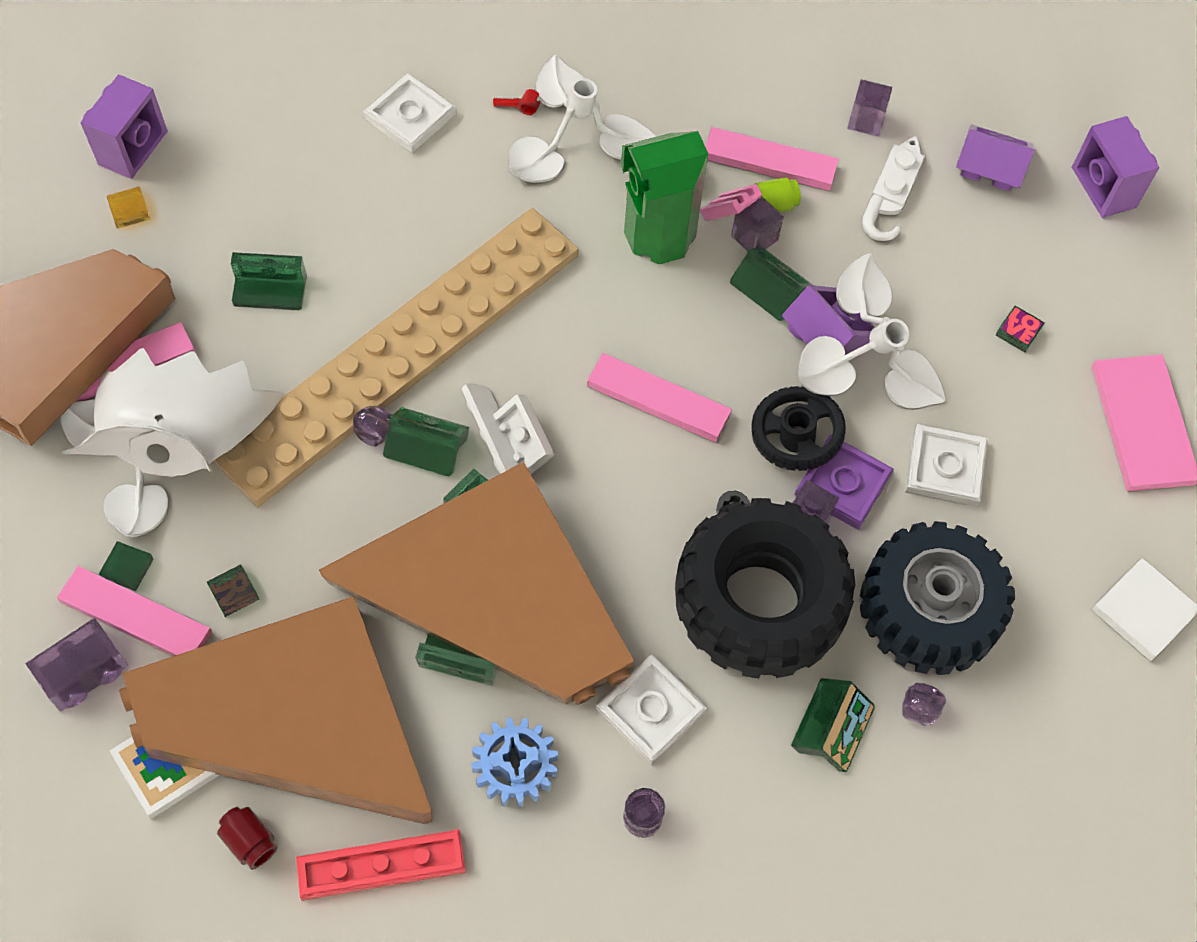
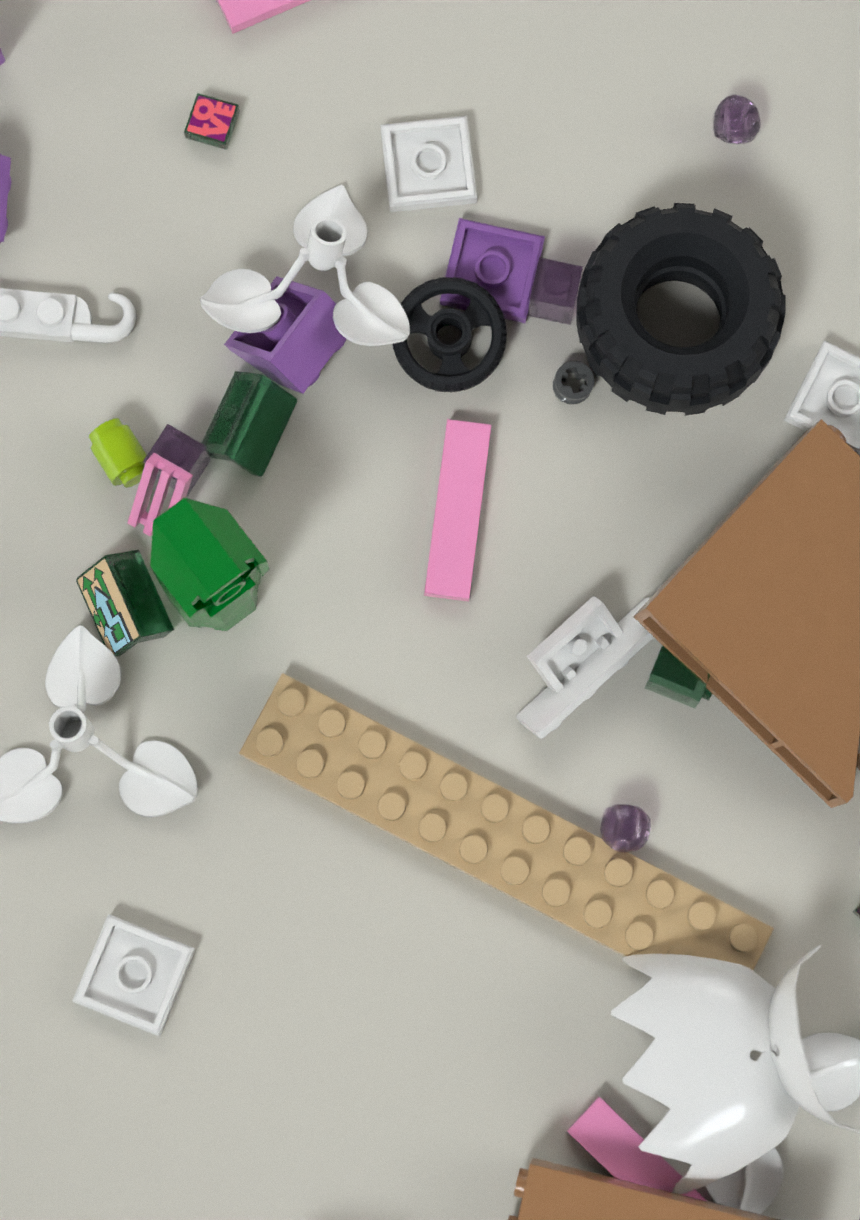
camera: 105 degrees left, 15 degrees up
(268, 281) = (472, 1046): clear green panel -> none
(424, 441) = (616, 760): clear green panel -> none
(526, 104) = (68, 820): red hand -> none
(771, 158) = (53, 479): bright pink tile -> none
(834, 723) = (791, 208): panel -> none
(936, 597) = (616, 129): black wheel -> none

